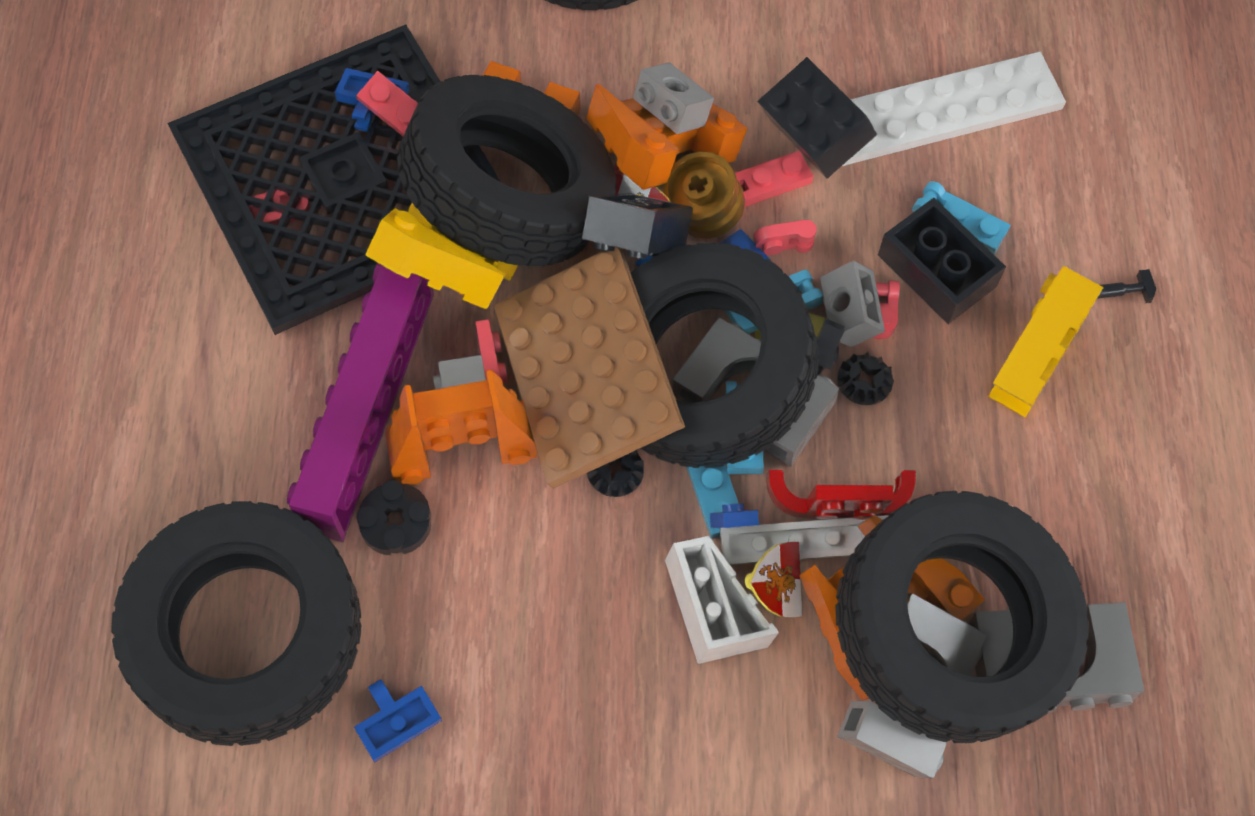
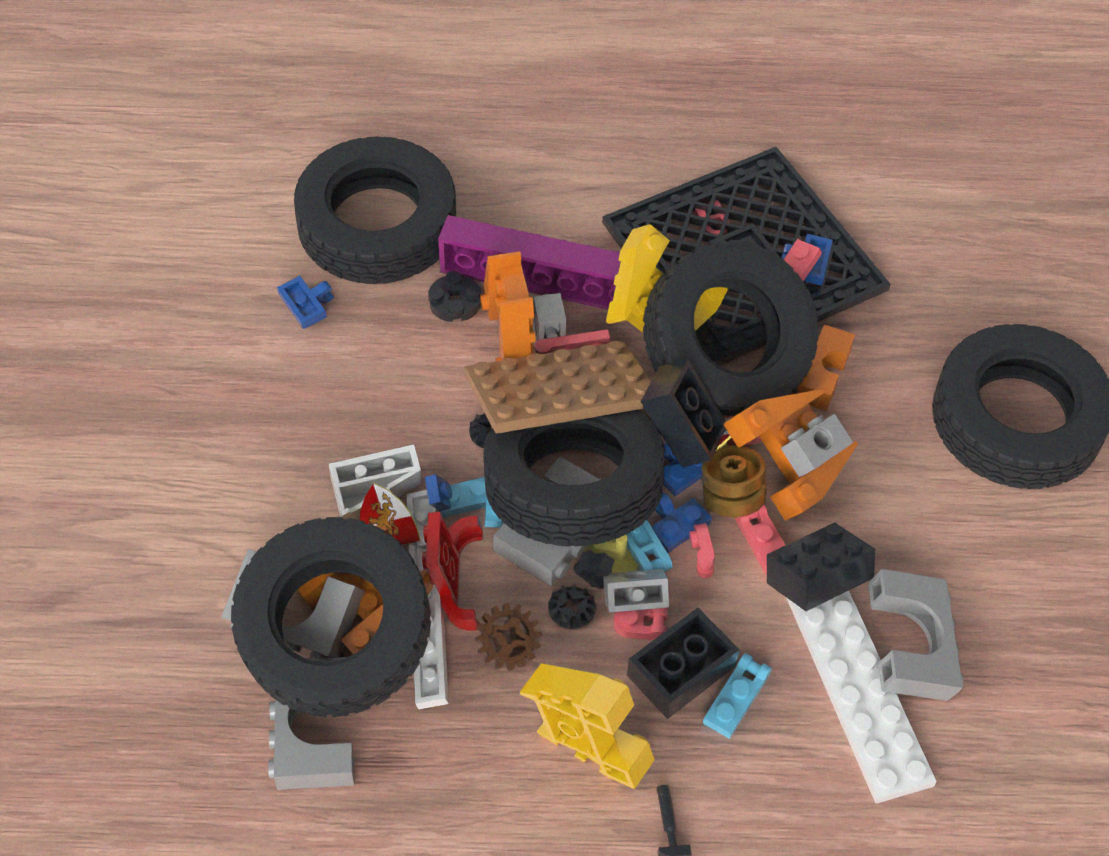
camera: 90 degrees right, 10 degrees down
(920, 33) = (928, 604): none -> light grey arch
(922, 440) = (520, 640): none -> reddish brown gear

